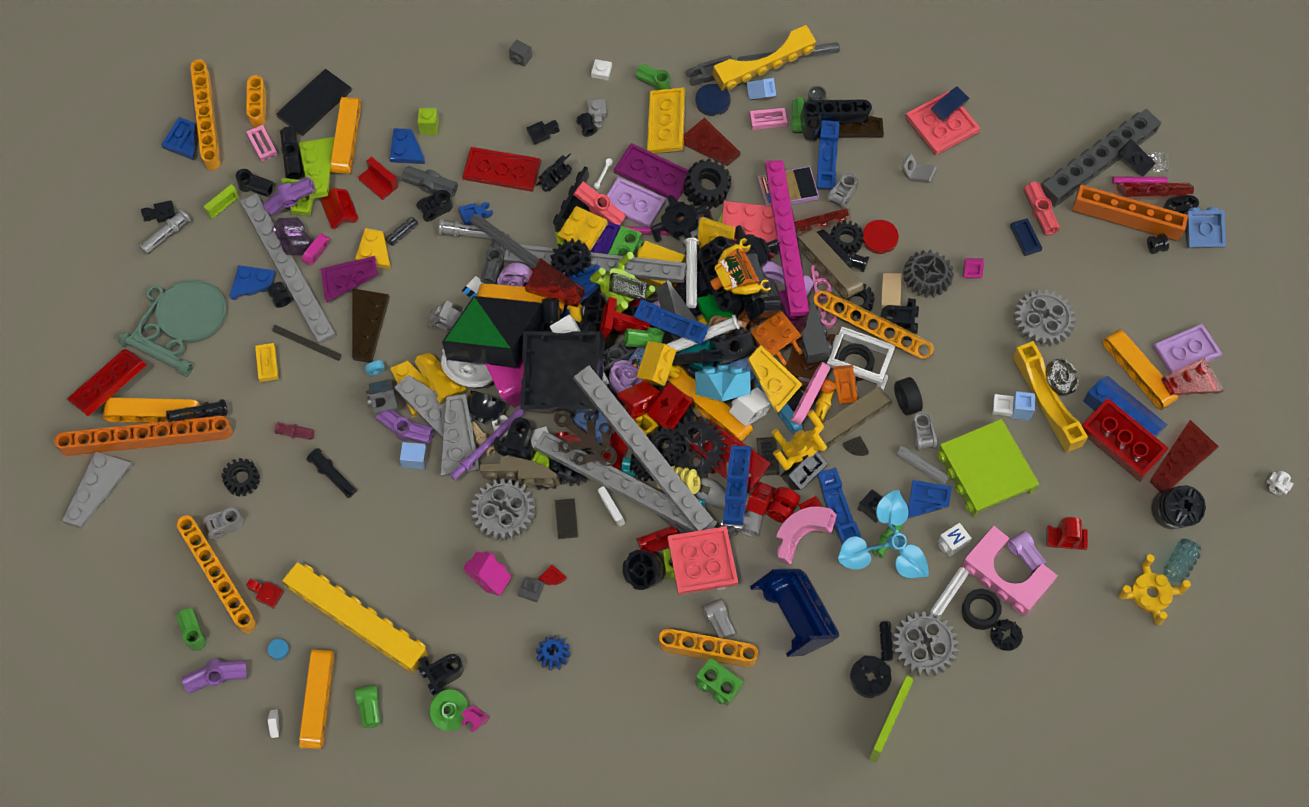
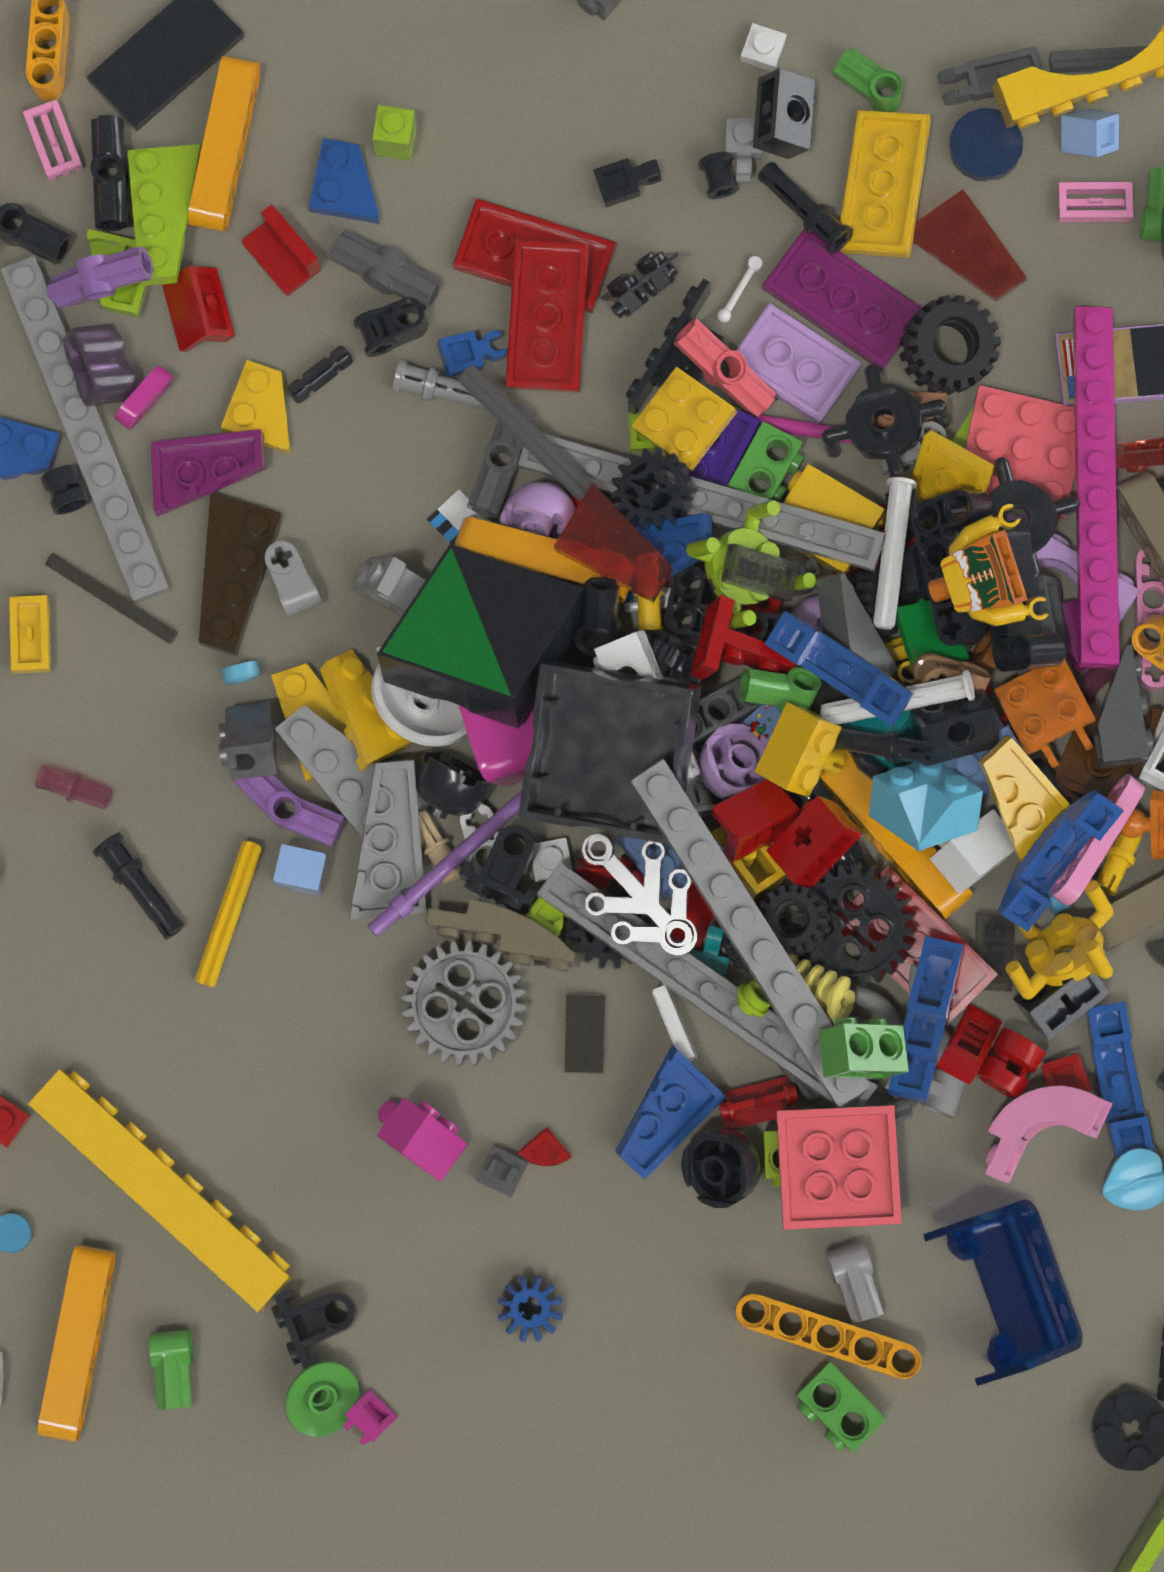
camera: 10 degrees right, 15 degrees up
(378, 482) = (228, 913): none -> yellow axle
(397, 323) = (292, 583): none -> light grey piece
(510, 193) = (547, 315): none -> red tile
(612, 548) = (668, 1113): none -> blue wing
(614, 94) = (784, 113): none -> black brick
(636, 136) = (815, 217): none -> black pin
(648, 483) = (752, 999): none -> lime plate
(707, 499) = (863, 1049): none -> bright green brick
(790, 399) = (1051, 855): none -> blue slope

